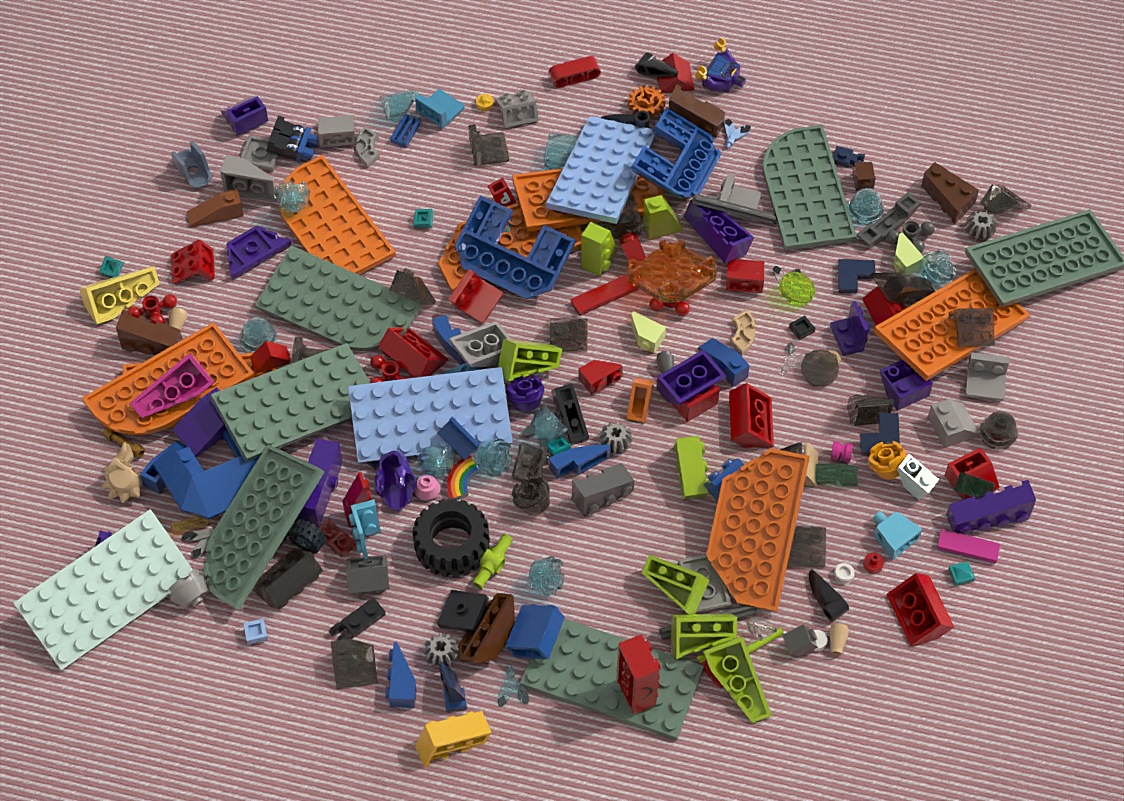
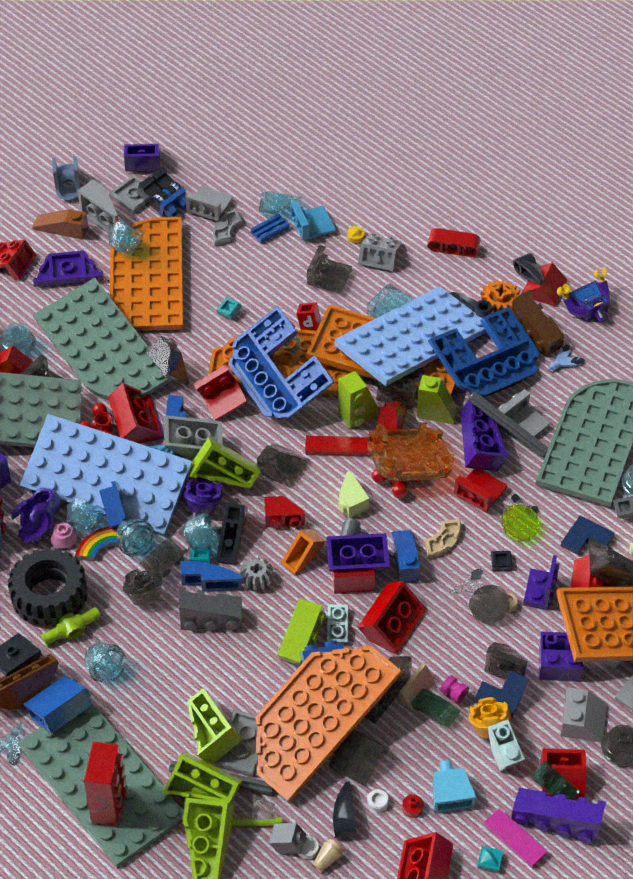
camera: 30 degrees right, 5 degrees down
(714, 449) = (337, 623): none -> light aqua slope

